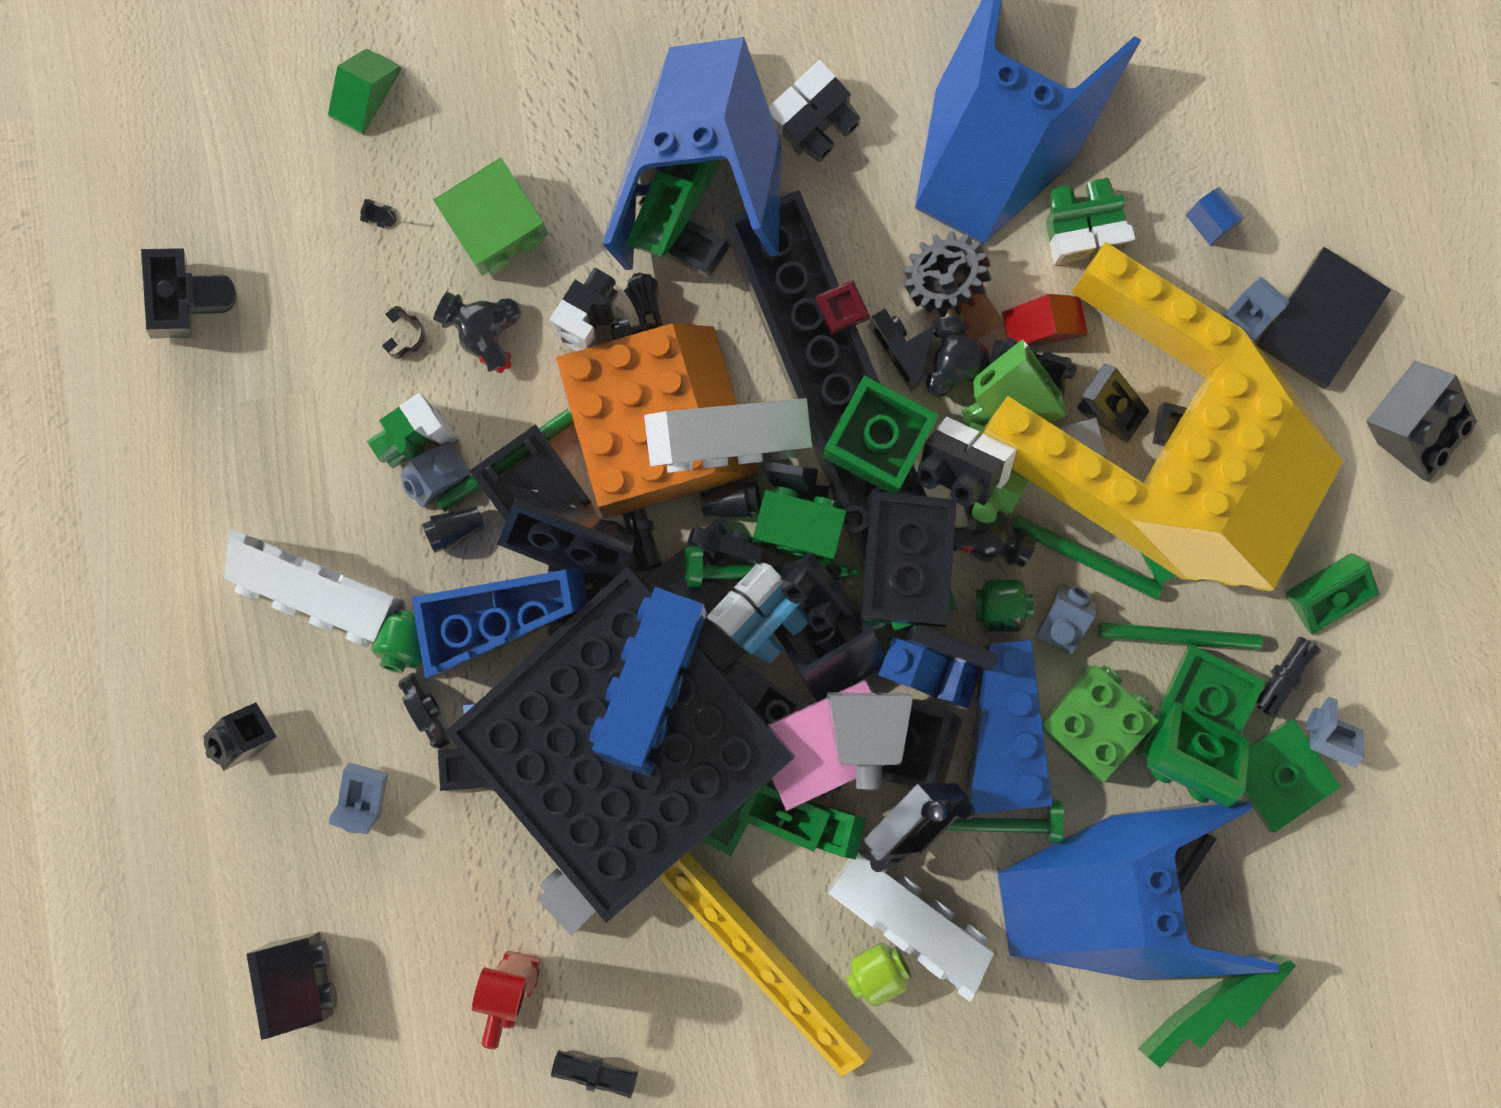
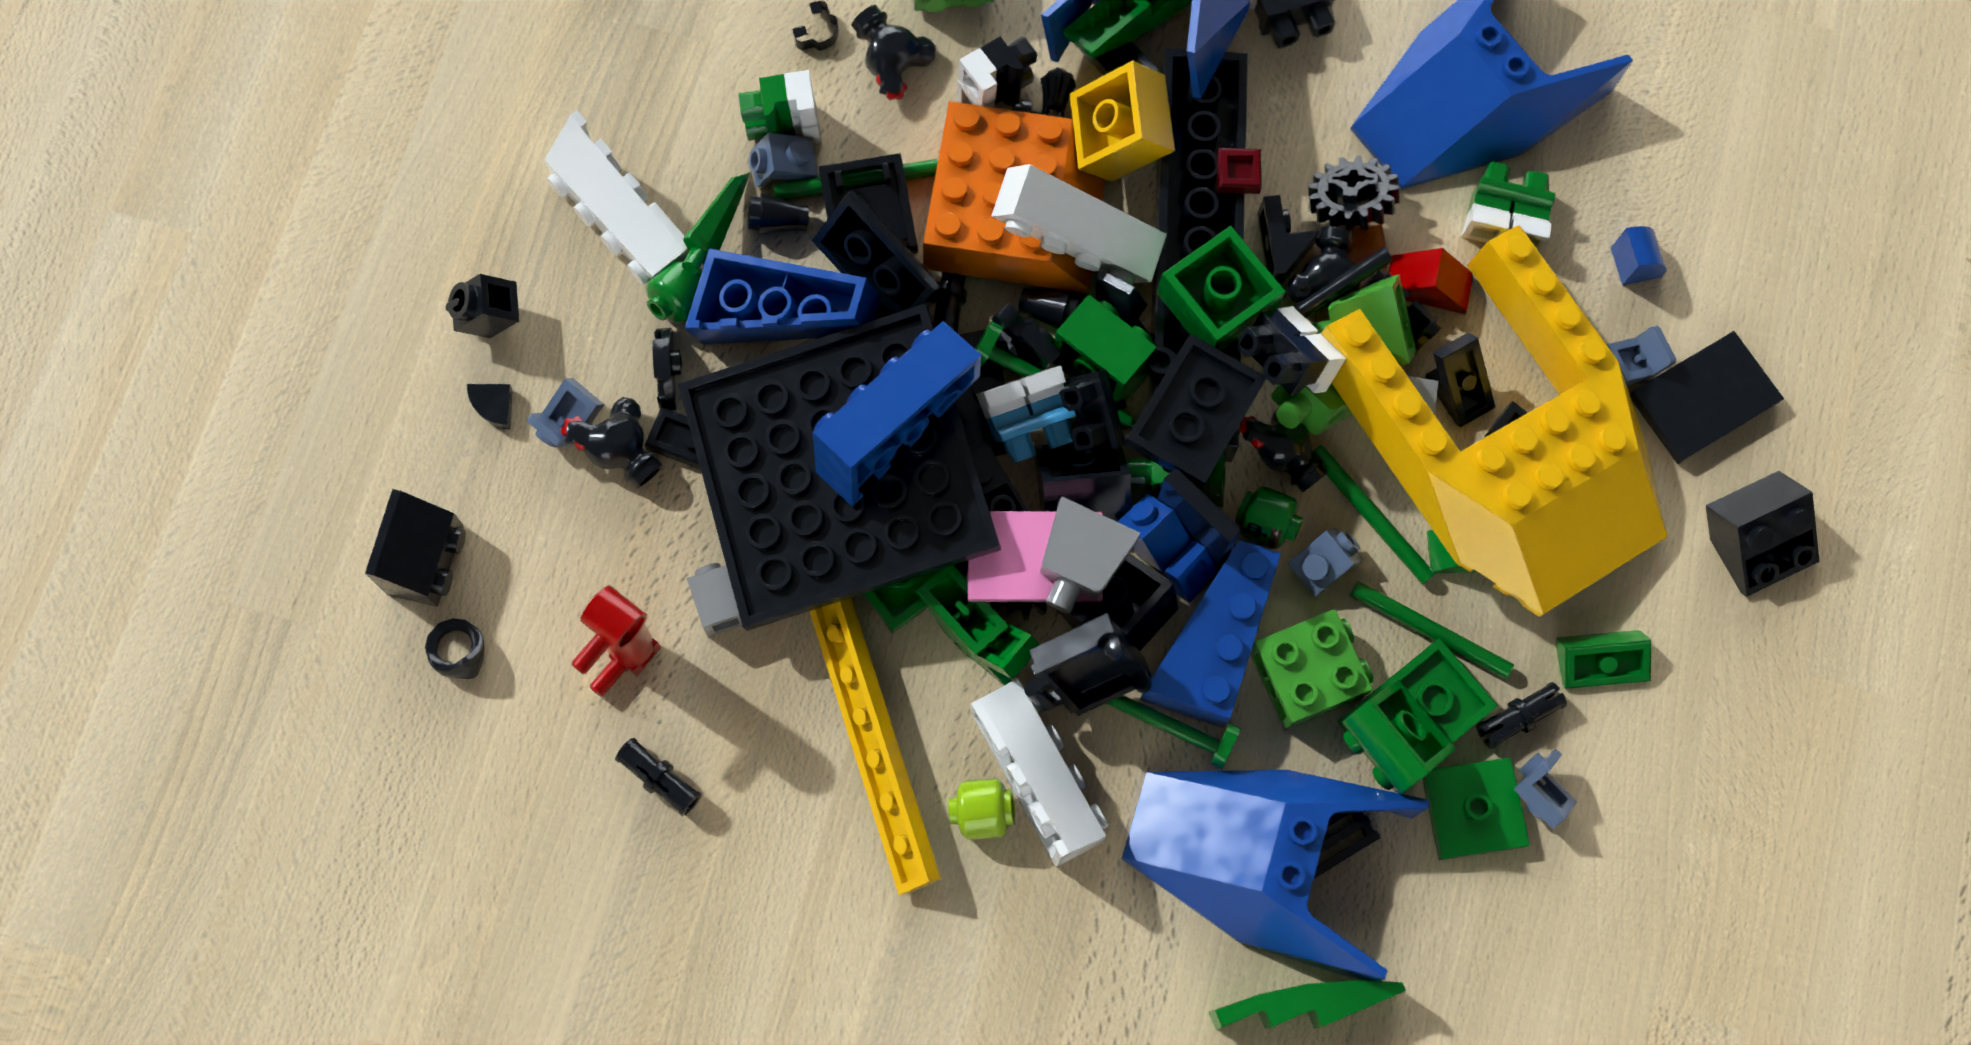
camera: 20 degrees right, 10 degrees down
(289, 815) = (492, 403): none -> black tile
(368, 1067) = (466, 667): none -> black piece
(403, 566) = (713, 224): none -> green bar
(414, 802) = (615, 442): none -> black animal
(718, 307) = (1122, 121): none -> yellow brick
(971, 375) = (1344, 282): none -> black bar

